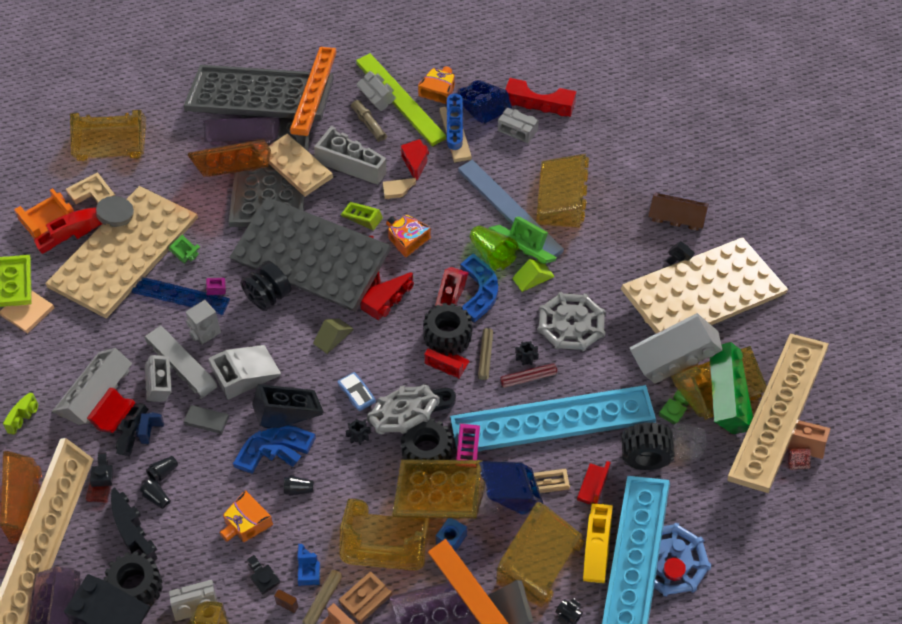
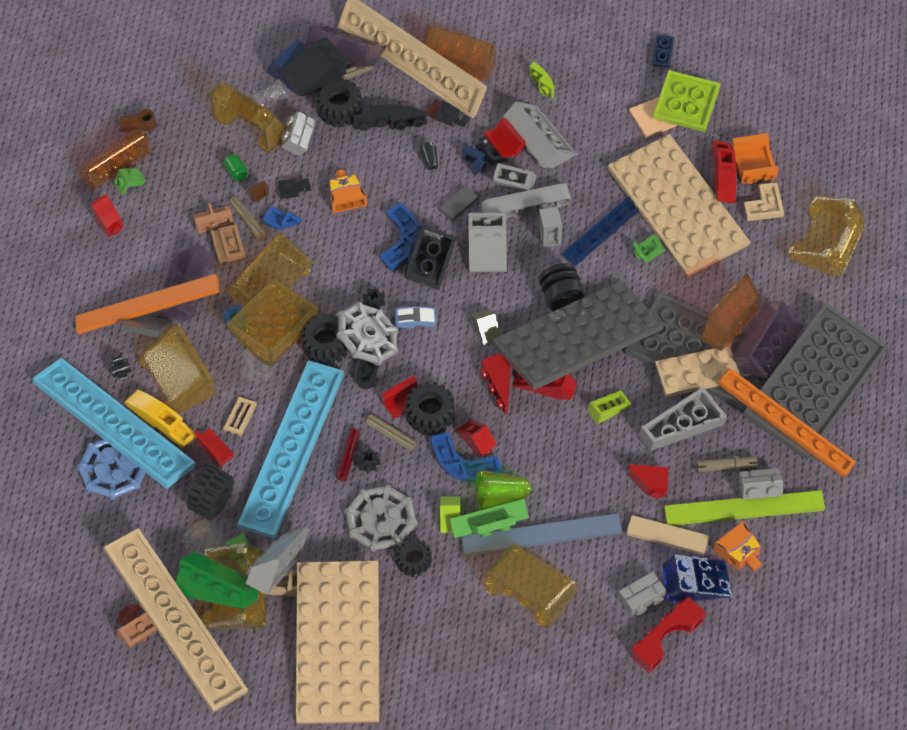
camera: 120 degrees right, 5 degrees up
(114, 211) = (718, 204): dark grey tile -> none
(126, 441) = (466, 137): black plate -> none
(154, 493) = (408, 144): black cone -> none
(215, 286) = (593, 258): magenta tile -> none
(283, 452) = (386, 237): blue slope -> none
(296, 485) = (353, 238): black cone -> none
(397, 188) = (625, 450): tan tile -> none
(407, 234) = (560, 429): torso -> none
(454, 121) = (676, 539): blue beam -> none
(469, 429) = (316, 372): dark pink slope -> none
(511, 485) = (242, 370): clear blue slope -> none
(591, 288) = (405, 549): none -> black tyre
(674, 569) = (99, 455): red tile -> none
(678, 211) = (446, 681): reddish brown slope -> none
(679, 253) = (388, 641): black plate -> none

